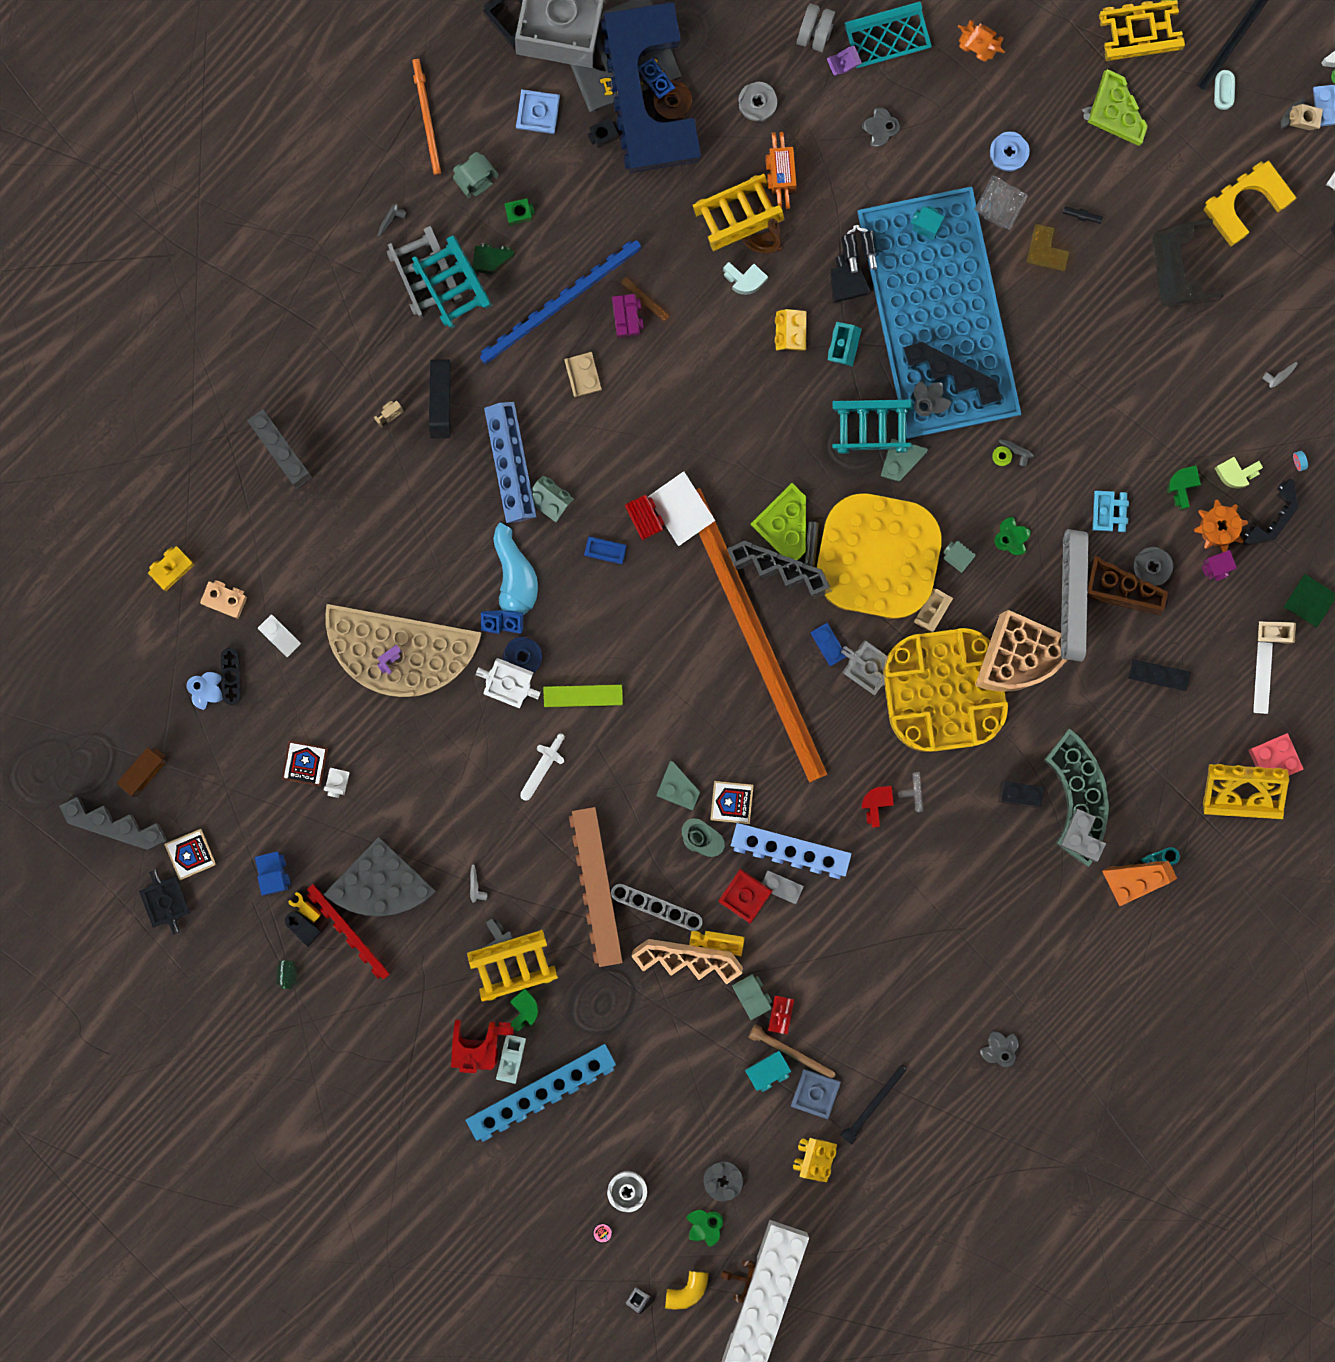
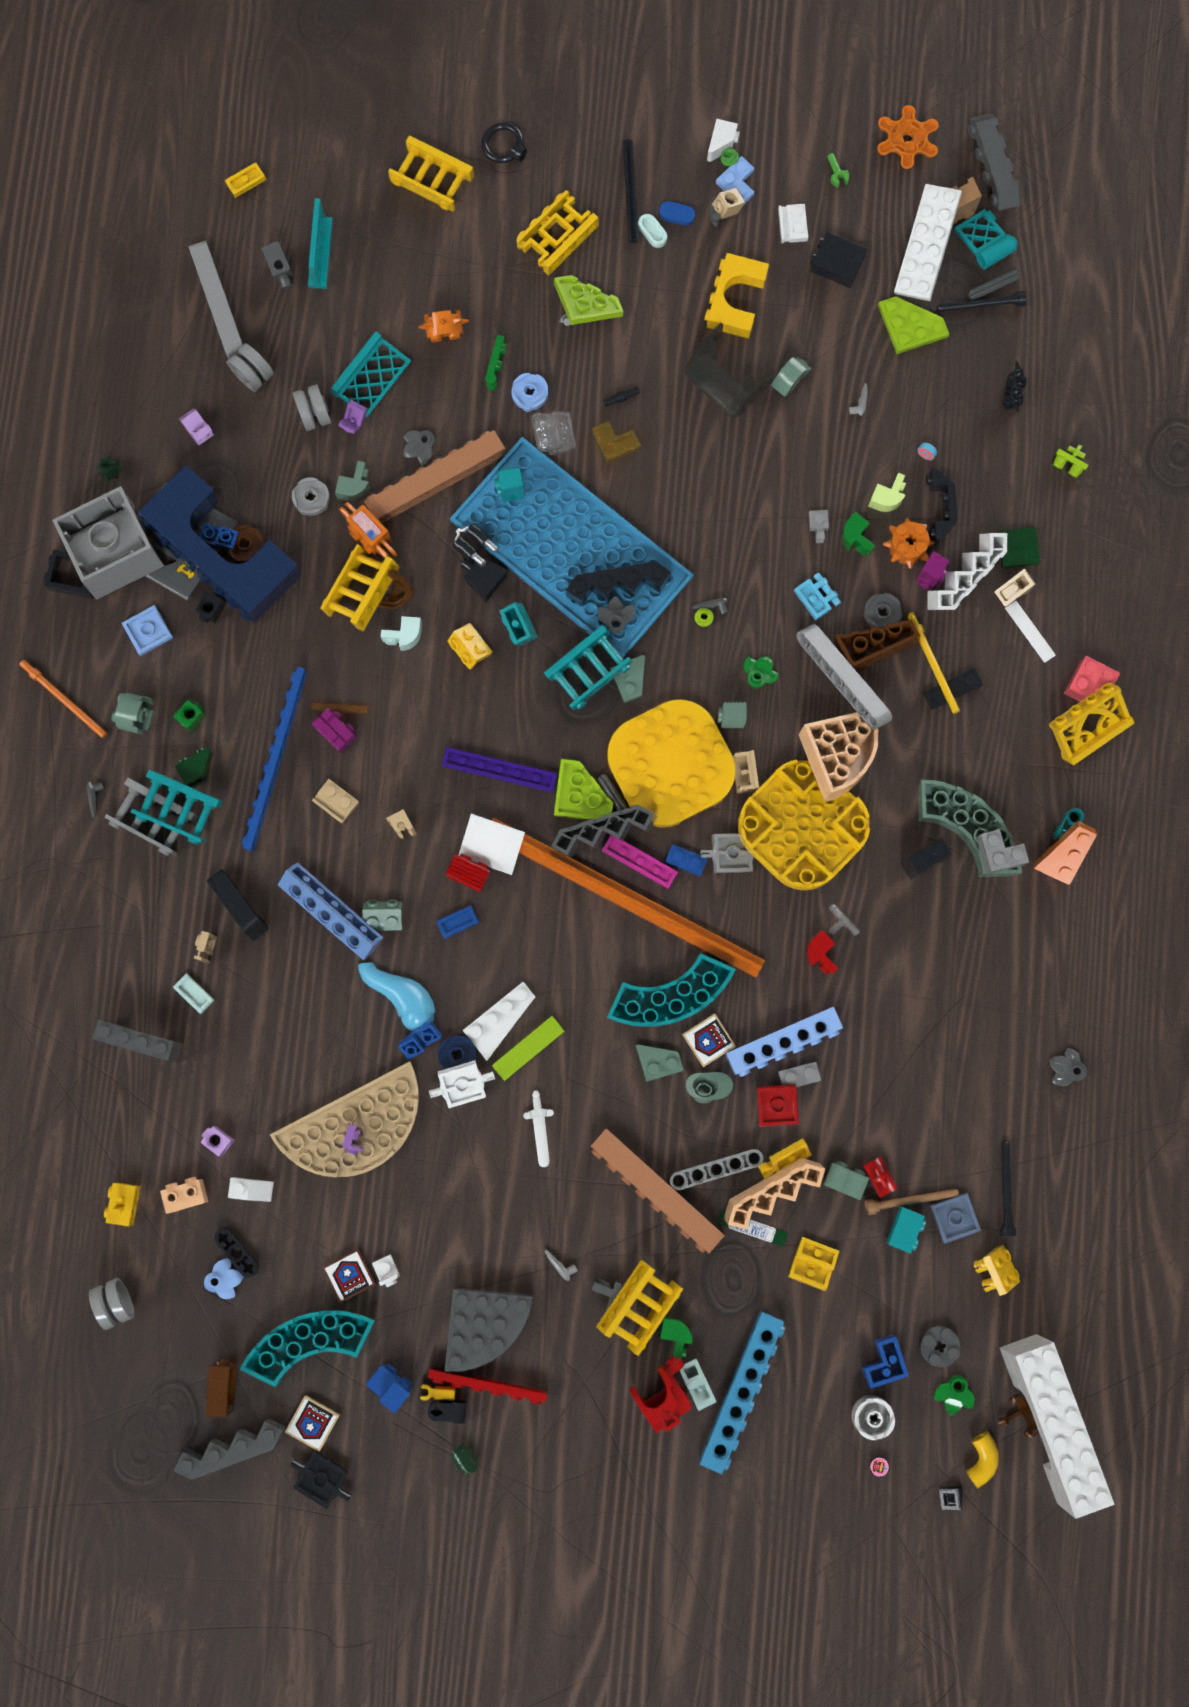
camera: 40 degrees left, 5 degrees down
(106, 640) = (111, 1303): none -> light grey wheel
(236, 783) = (304, 1337): none -> teal brick
(284, 584) = (225, 1140): none -> lavender brick
(351, 443) = (193, 993): none -> light aqua tile
(569, 656) = (497, 1022): none -> white wing
(620, 433) = (399, 822): none -> tan hinge
(651, 980) = (757, 1230): none -> sticker
(670, 1164) = (889, 1367): none -> blue brick
(675, 1040) = (813, 1264): none -> yellow slope
(728, 748) = (673, 1000): none -> teal brick
(735, 452) = (499, 770): none -> dark purple plate
(789, 617) = (639, 861): none -> dark pink plate
(799, 123) = (354, 488): none -> sand green brick
(872, 165) = (435, 477): none -> nougat brick
(999, 105) = (495, 364): none -> green plate
(1161, 451) = (819, 523): none -> light grey plate
(1169, 606) = (934, 665): none -> yellow bar
(1238, 308) = (790, 376): none -> sand green brick
(1257, 90) = (677, 213): none -> blue tile
(1259, 589) = (974, 567): none -> white brick

